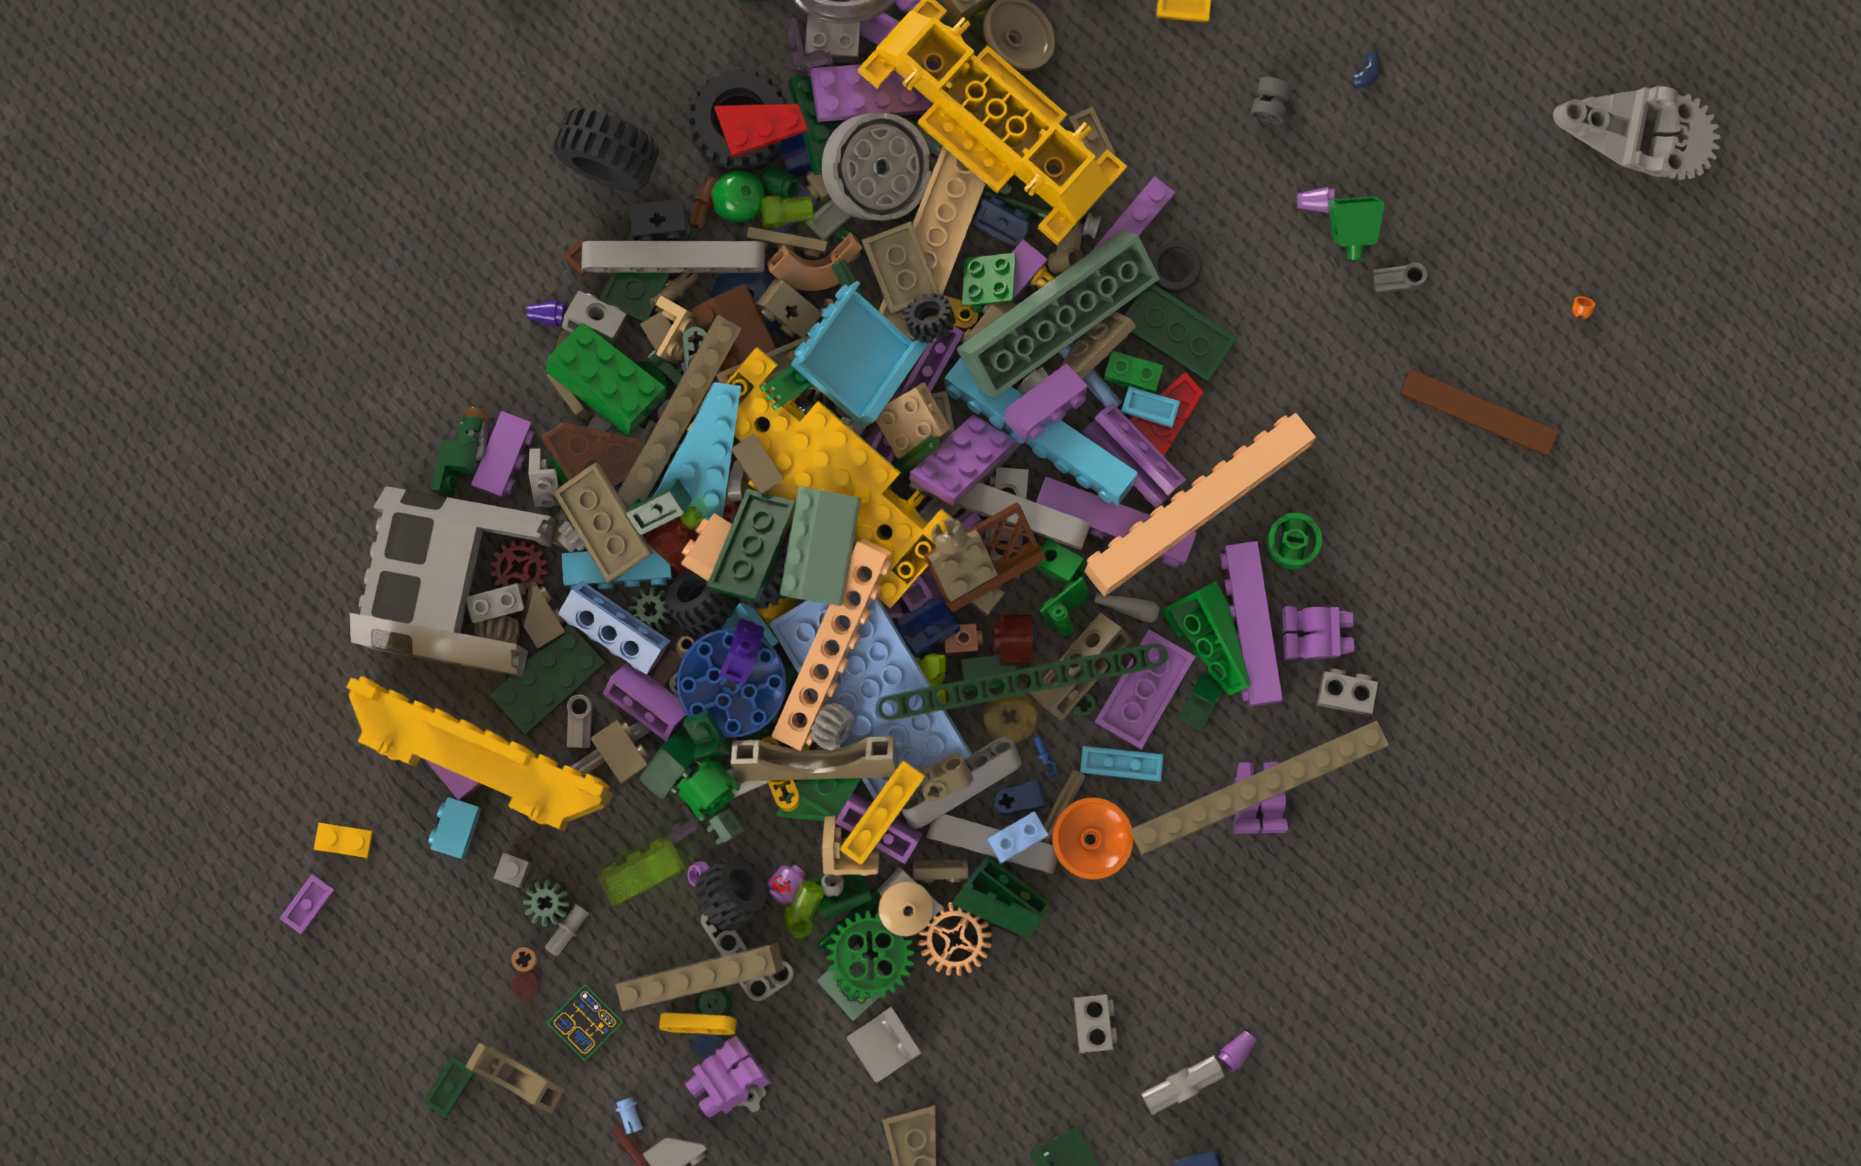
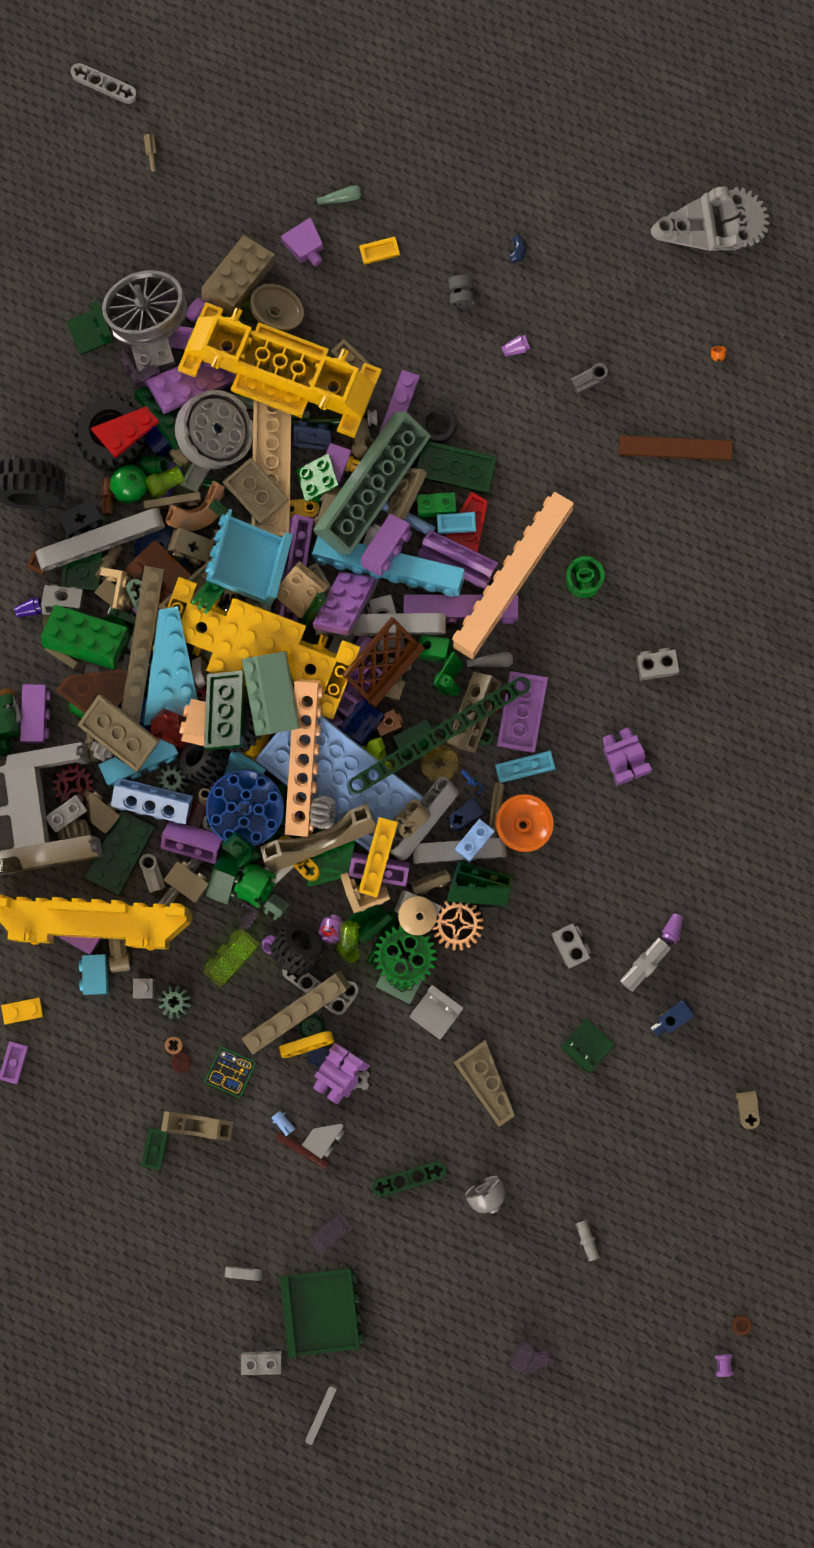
camera: 15 degrees left, 0 degrees up
(496, 815) = (119, 956): none -> dark tan piece
(542, 480) = (68, 720): light grey bracket -> none
(566, 930) = (195, 1015): light grey axle -> none
(659, 508) = (153, 708): panel -> none
(690, 518) = (176, 707): clear neon green hinge -> none
(742, 651) = (245, 784): dark purple bracket -> none
(757, 464) = (208, 654): dark tan tile -> none
(835, 890) = (358, 915): light grey hinge -> none
(931, 328) = (289, 524): black tyre -> none
(960, 559) = (367, 668): dark tan plate -> none
(1014, 638) = (422, 709): clear red brick -> none
(1201, 702) = (562, 706): dark green slope -> none
(1210, 631) = (551, 657): green wedge -> none
(1252, 622) = (577, 641): medium lavender brick -> none
(1259, 788) = (622, 748): dark tan plate -> none
(1324, 631) = (627, 629): medium lavender hips -> none
(1356, 223) = (547, 352): green torso -> none

